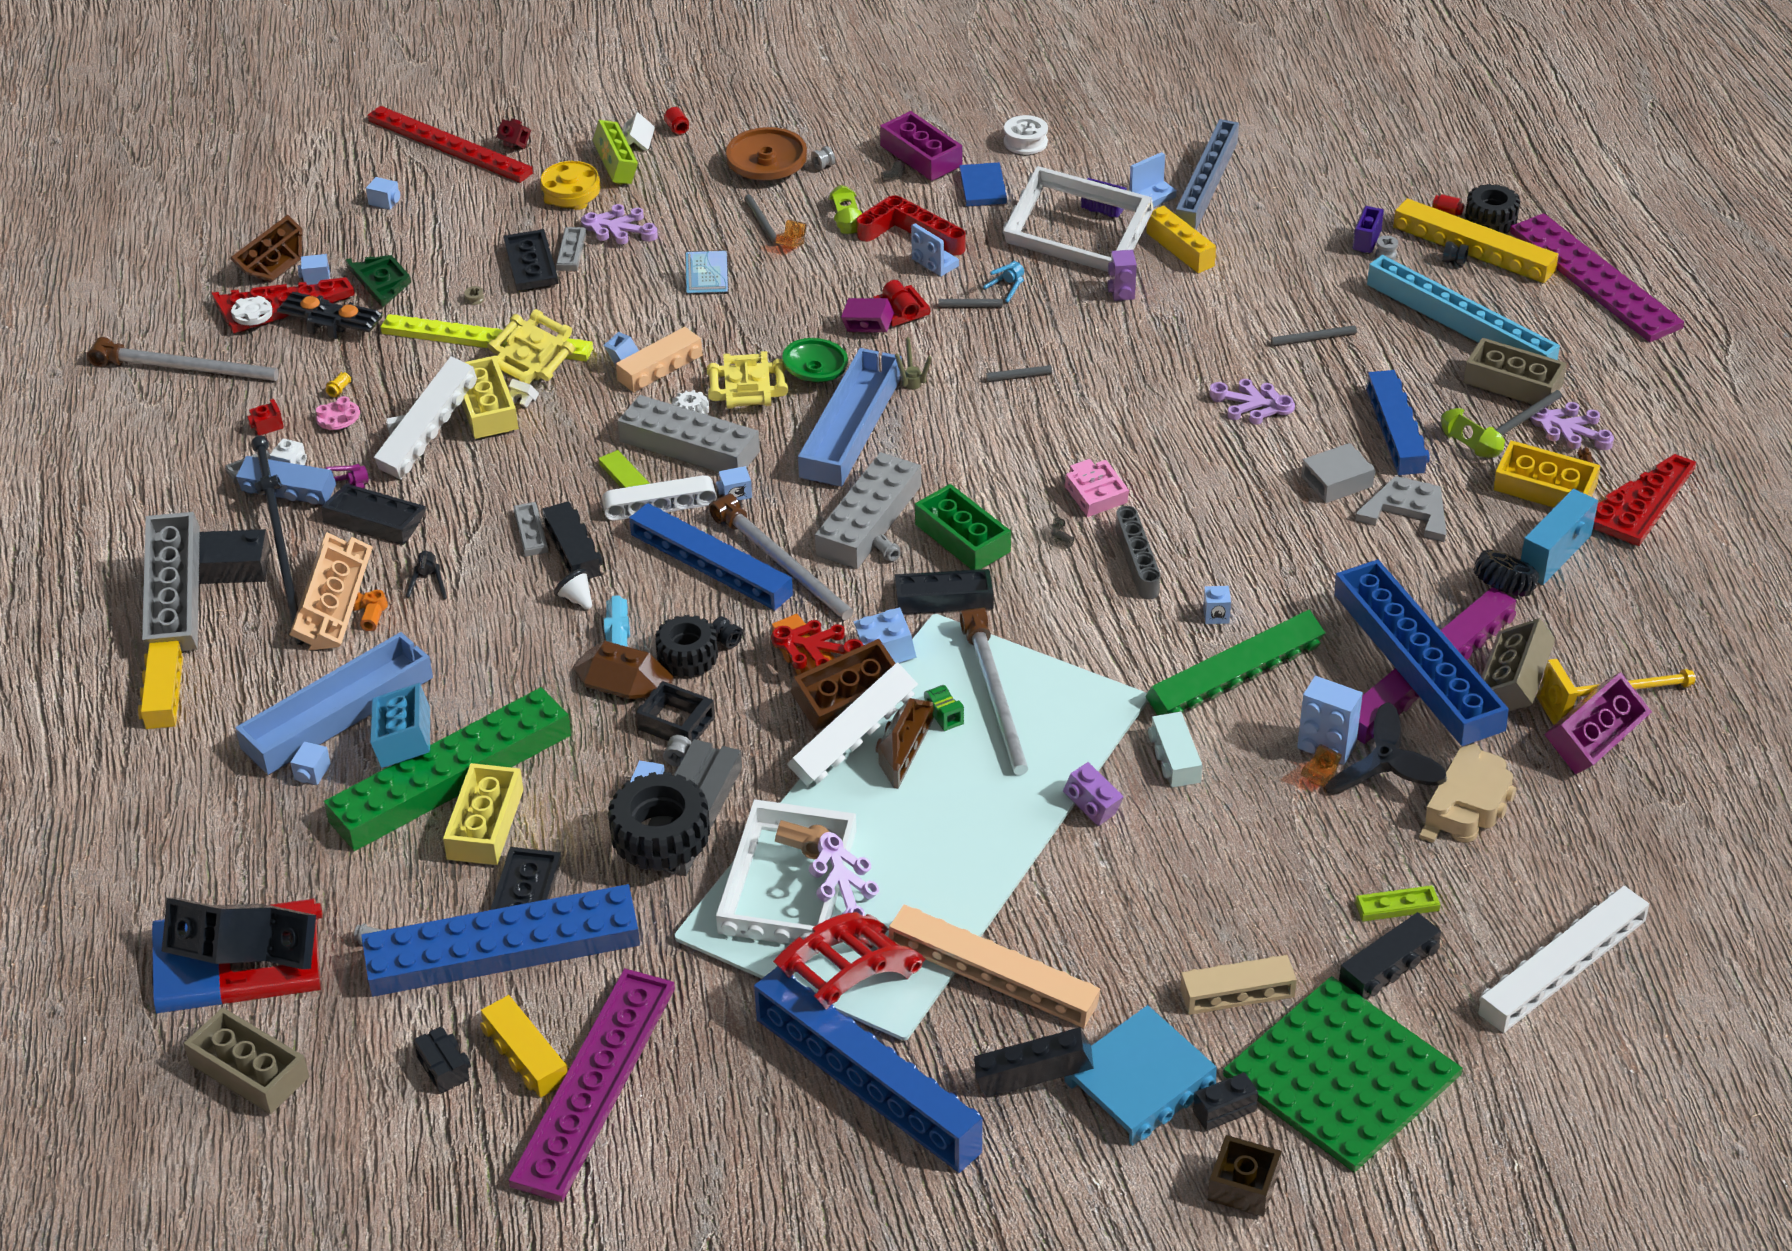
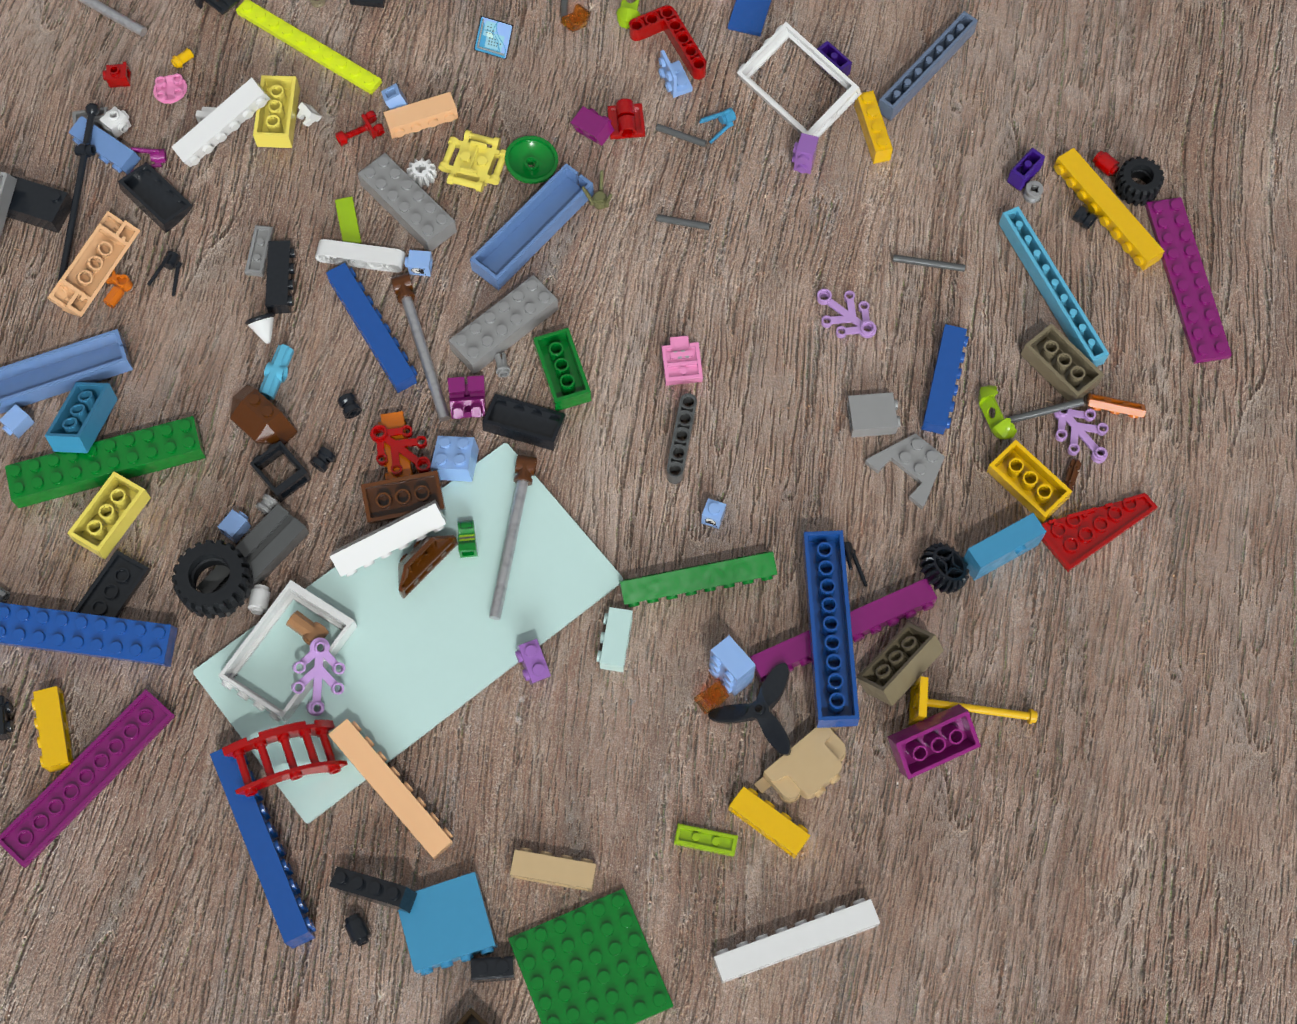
camera: 20 degrees right, 25 degrees up
(530, 350) = (329, 74): light yellow brick -> none
(598, 384) = (367, 119): none -> red bar
(686, 646) = (309, 397): black tyre -> none
(720, 842) = (259, 599): none -> white brick
(722, 689) = (322, 459): none -> black wheel
(863, 584) = (467, 399): none -> magenta hips
(1033, 1119) = (357, 929): none -> black brick
(1058, 532) = (634, 395): clear smoke arm -> none
(1148, 179) = (877, 59): light blue bracket -> none
(1390, 956) = (672, 889): black brick -> none
(1460, 860) = (769, 822): none -> yellow brick
(1595, 394) = (1116, 406): none -> orange plate

